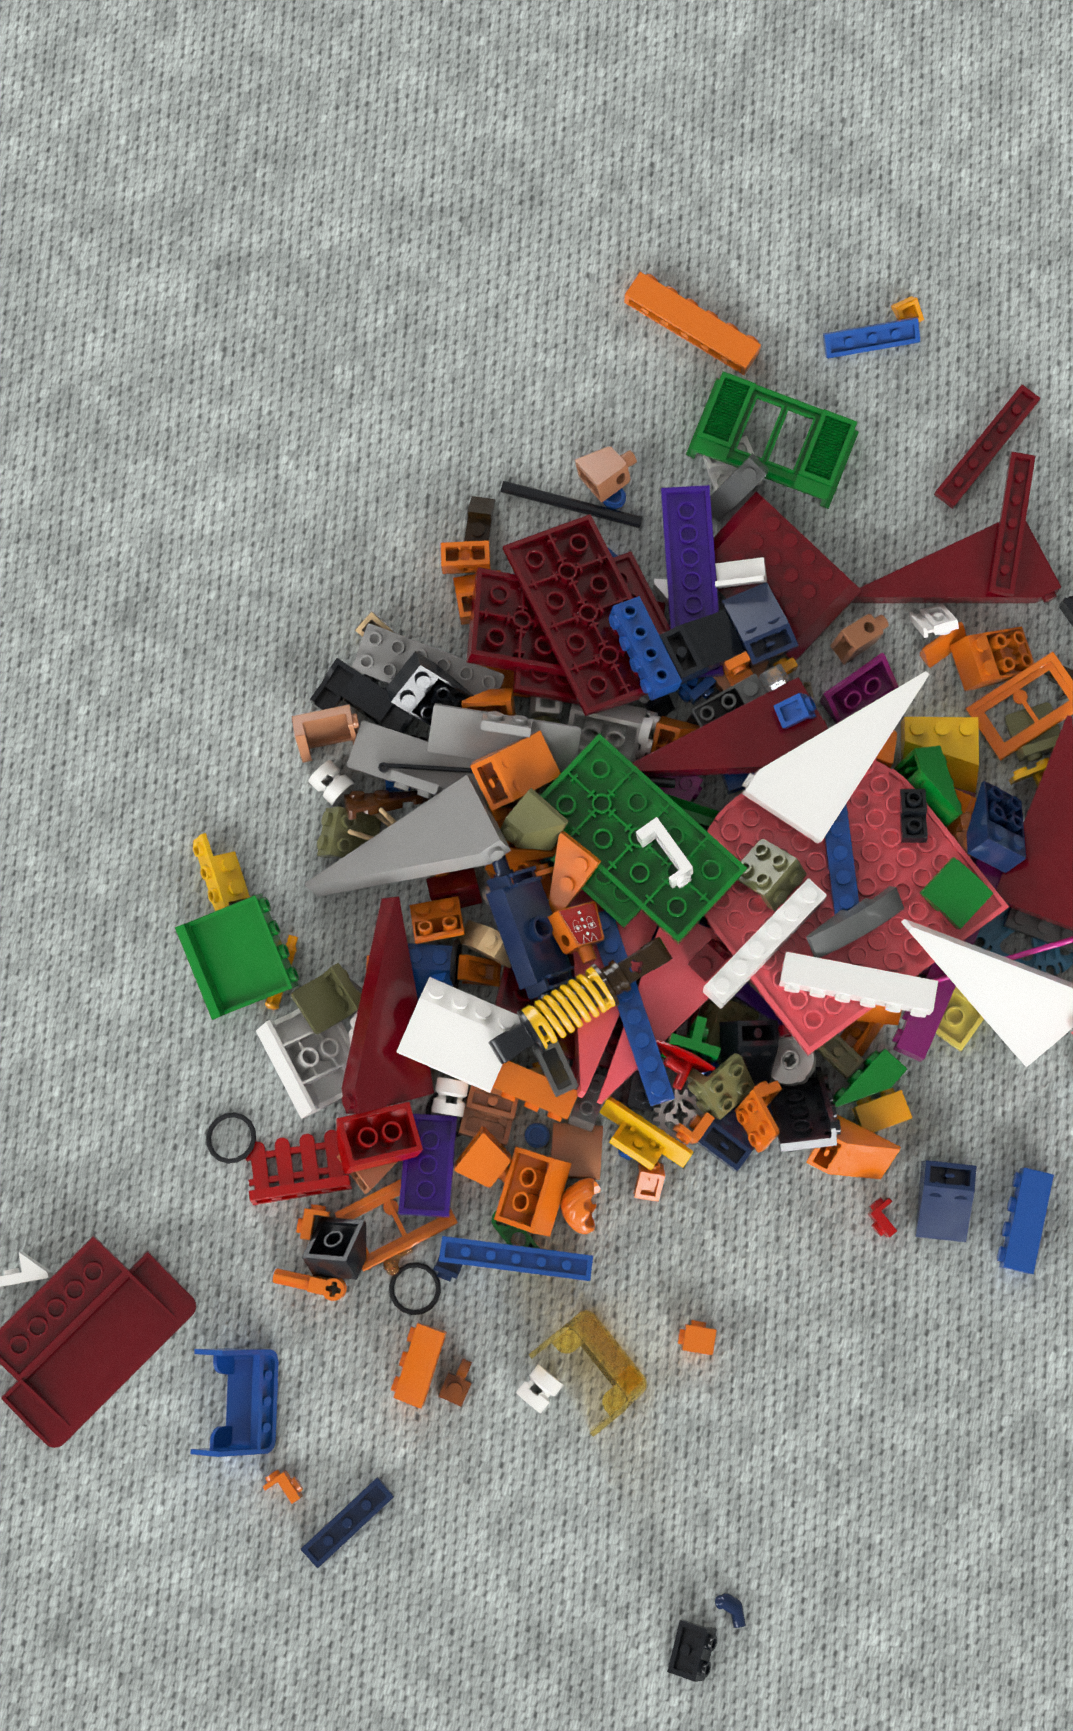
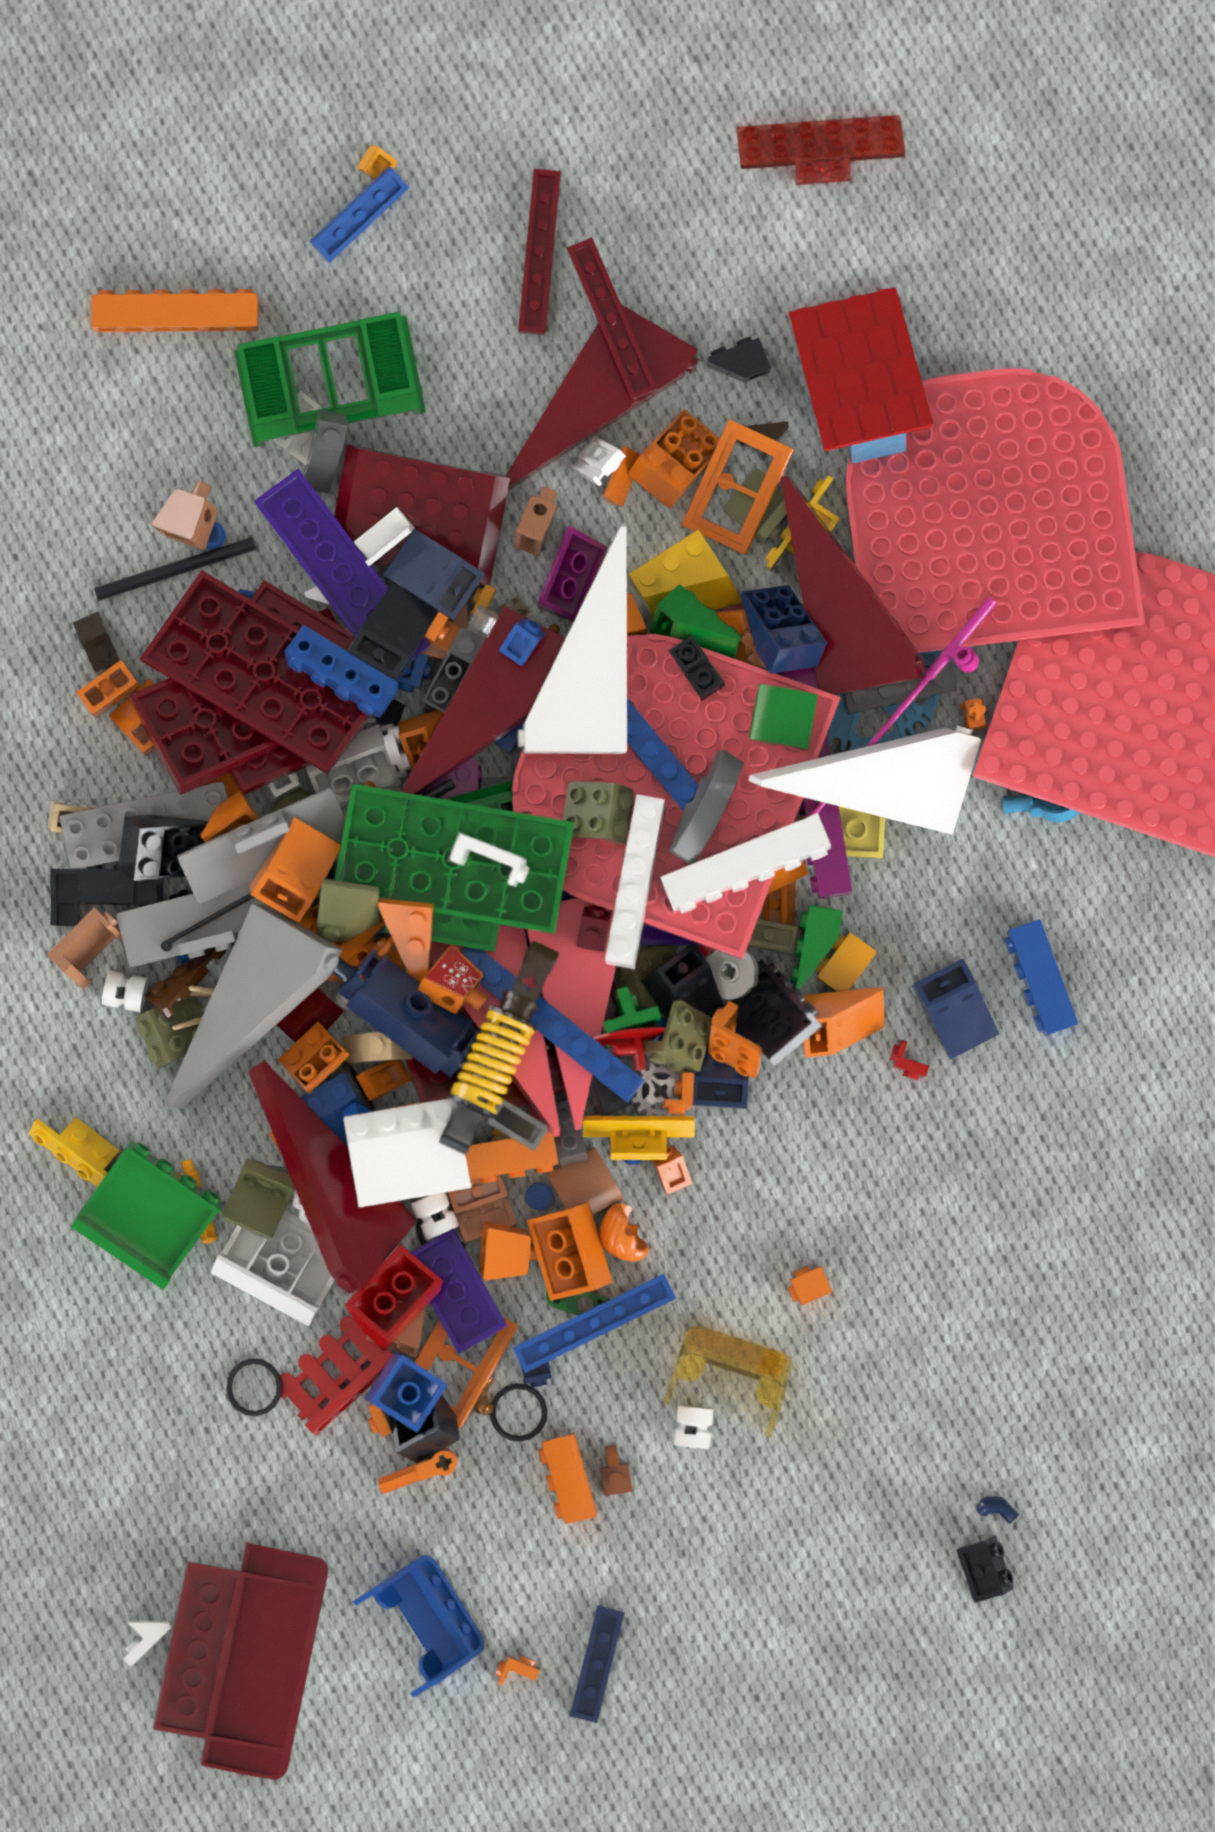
camera: 35 degrees left, 5 degrees up
(340, 1216) = (406, 1391): none -> blue slope

